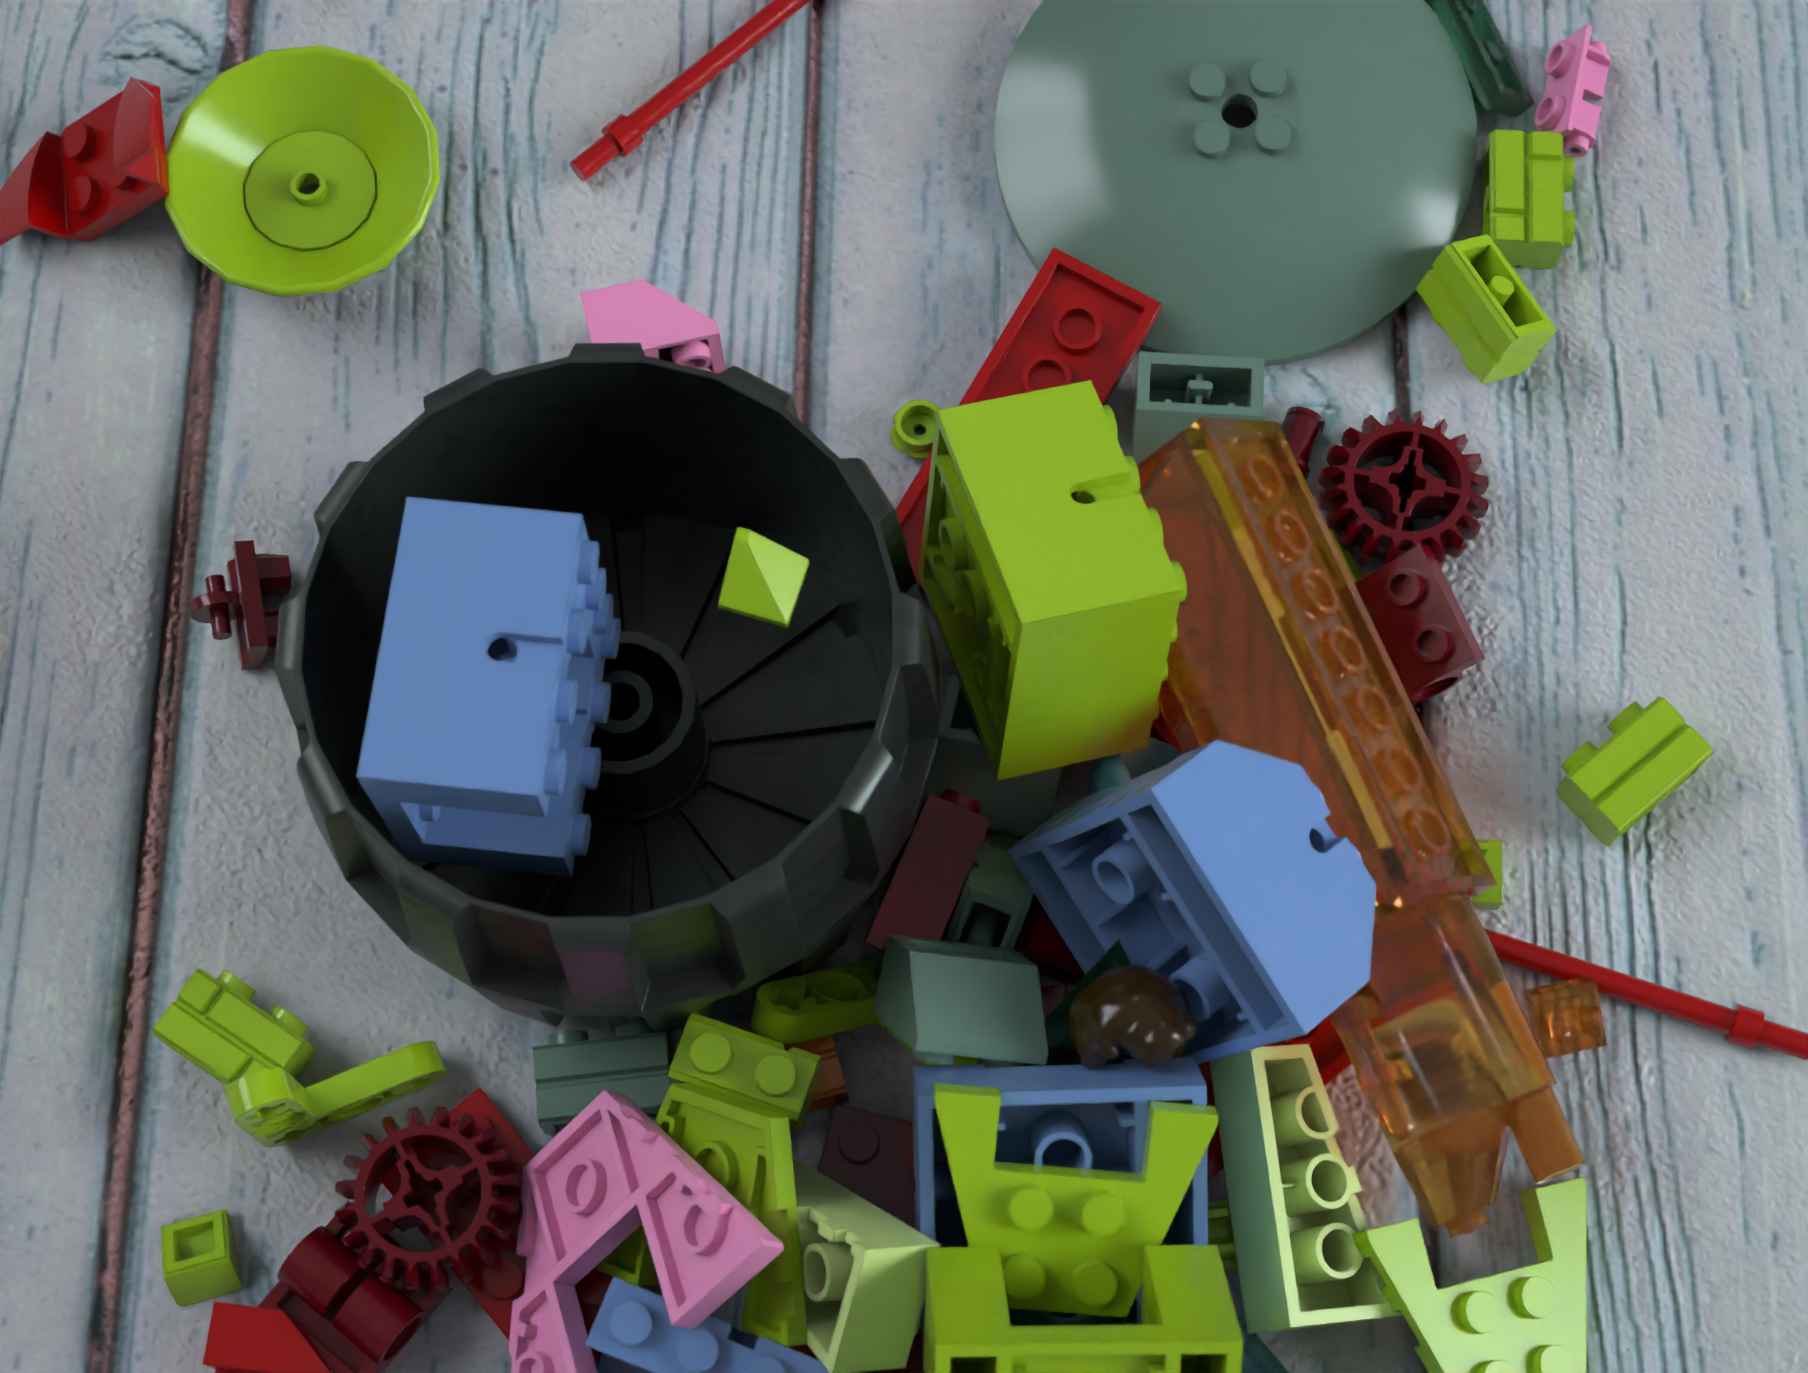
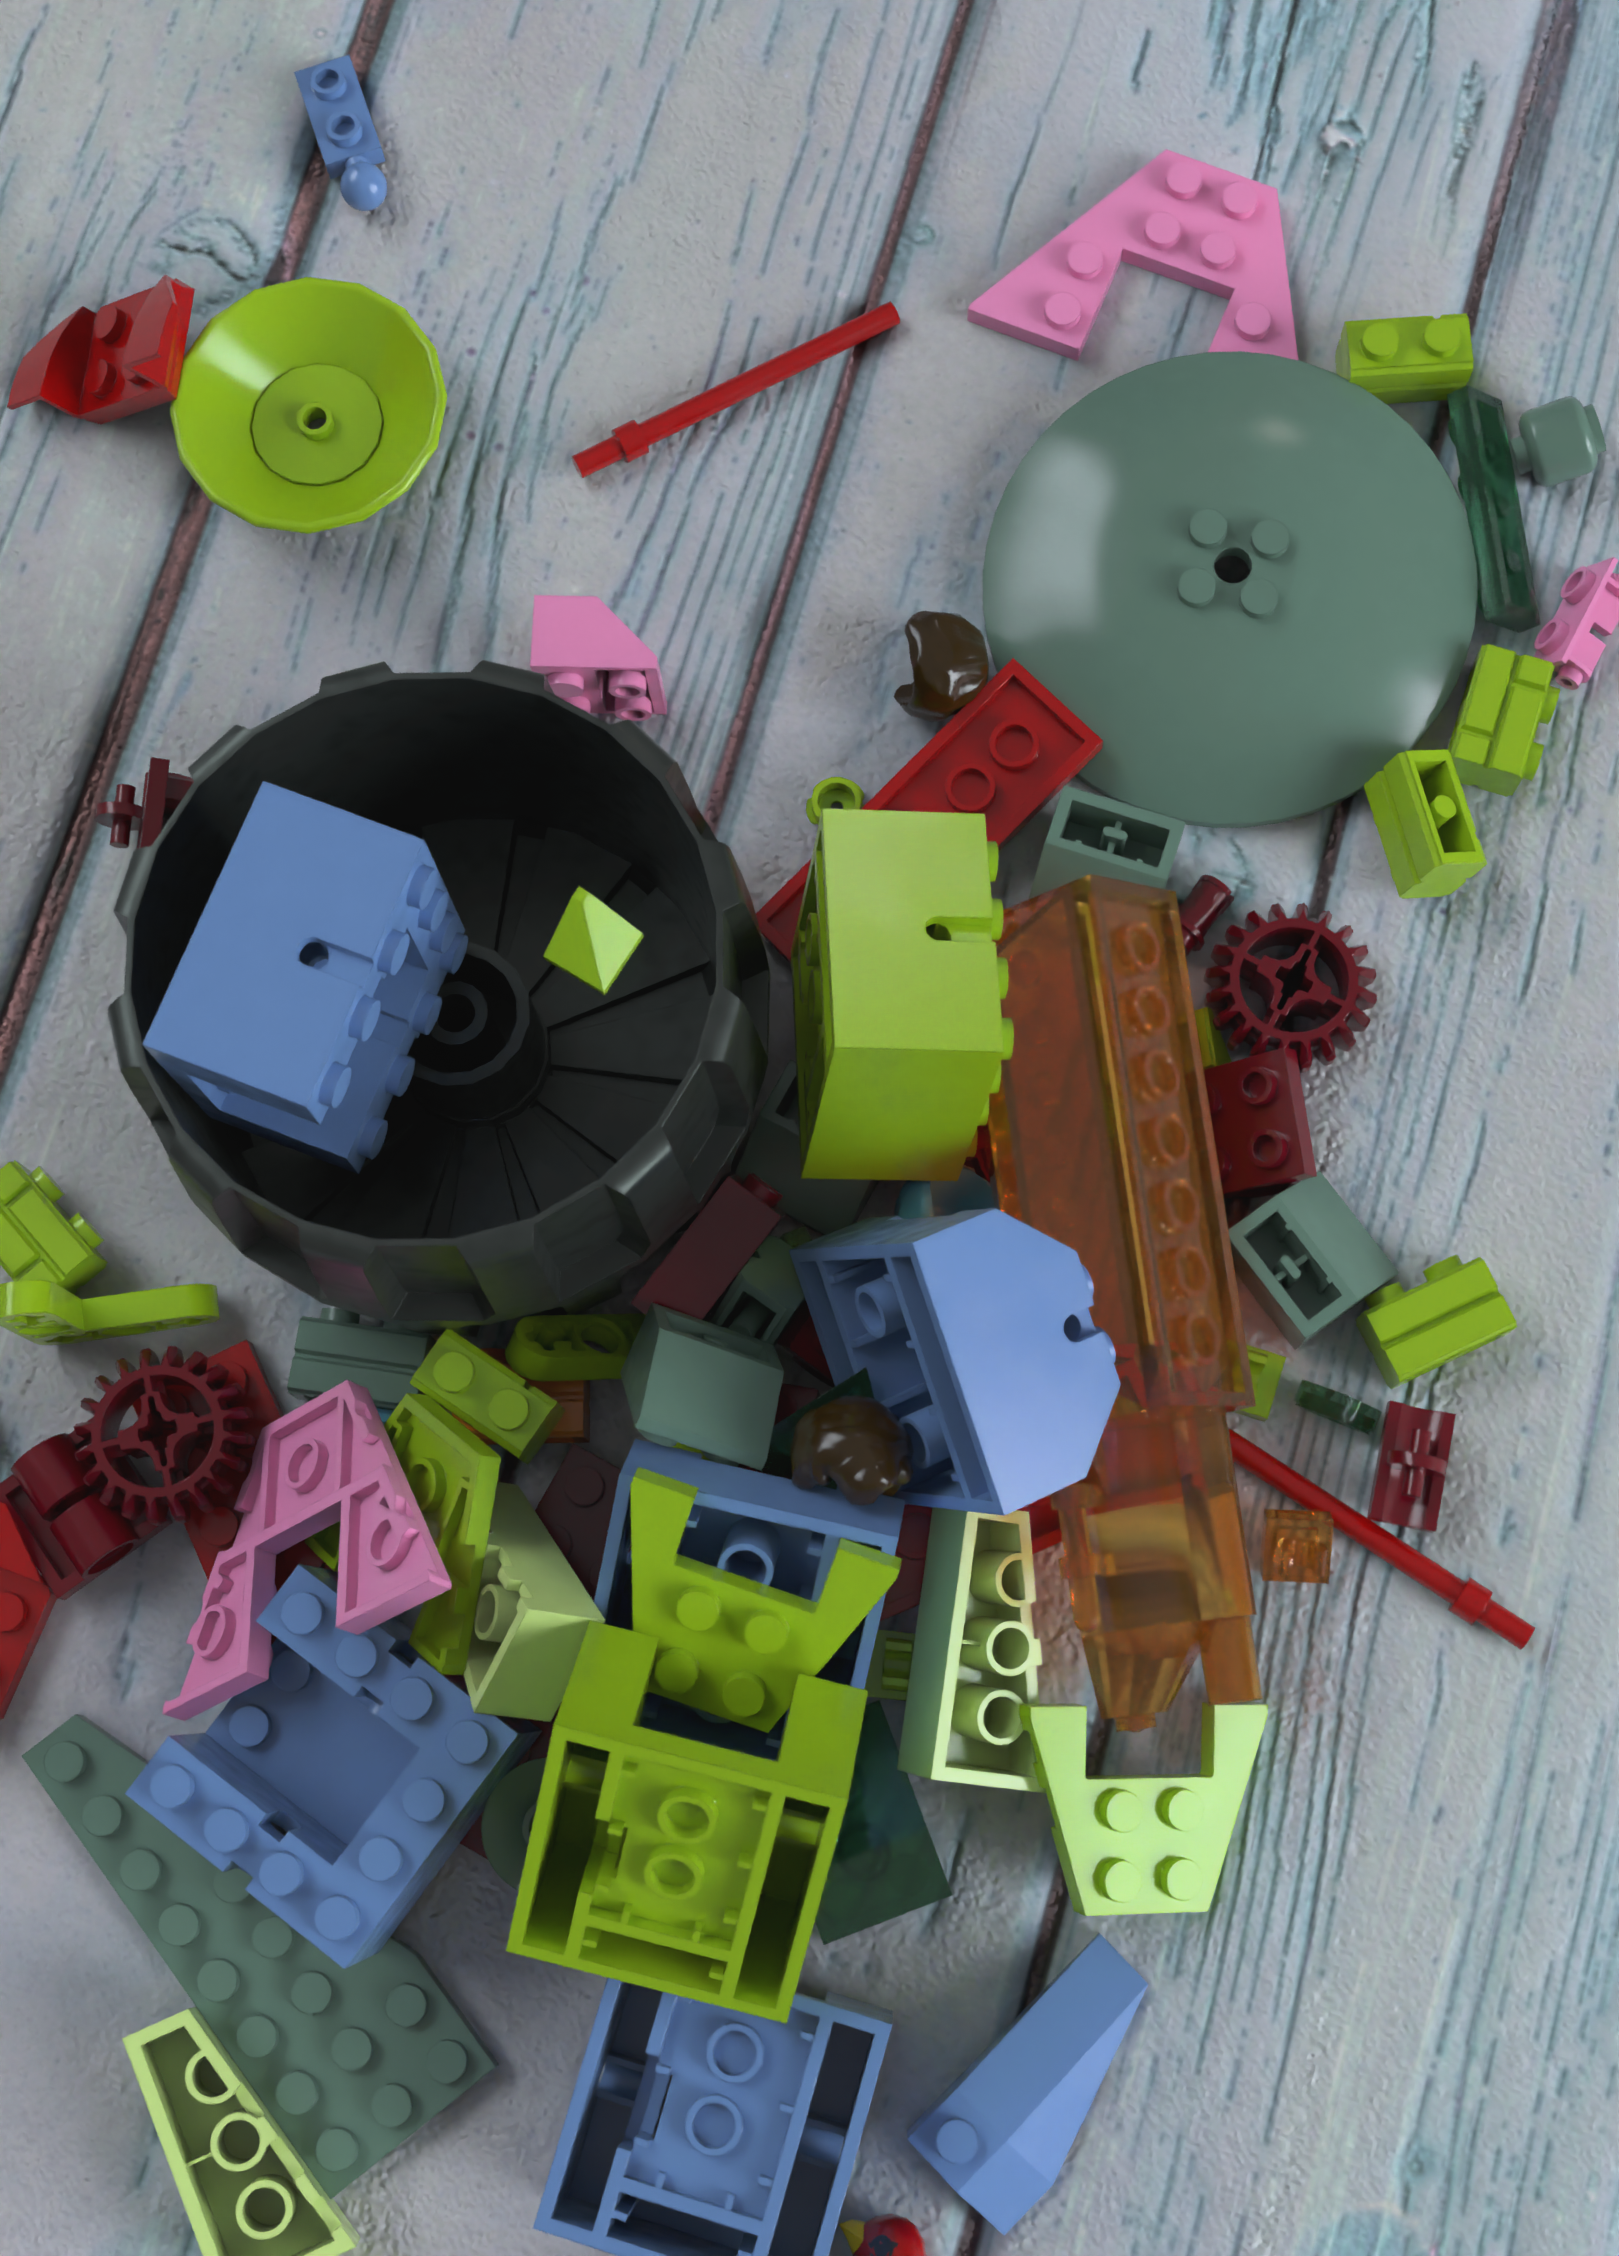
camera: 20 degrees right, 5 degrees up
(995, 270) = (946, 663): none -> dark brown hair
(1497, 742) = (1307, 1258): none -> sand green slope
(1565, 874) = (1337, 1407): none -> clear green tile
(1653, 912) = (1411, 1467): none -> dark red hips

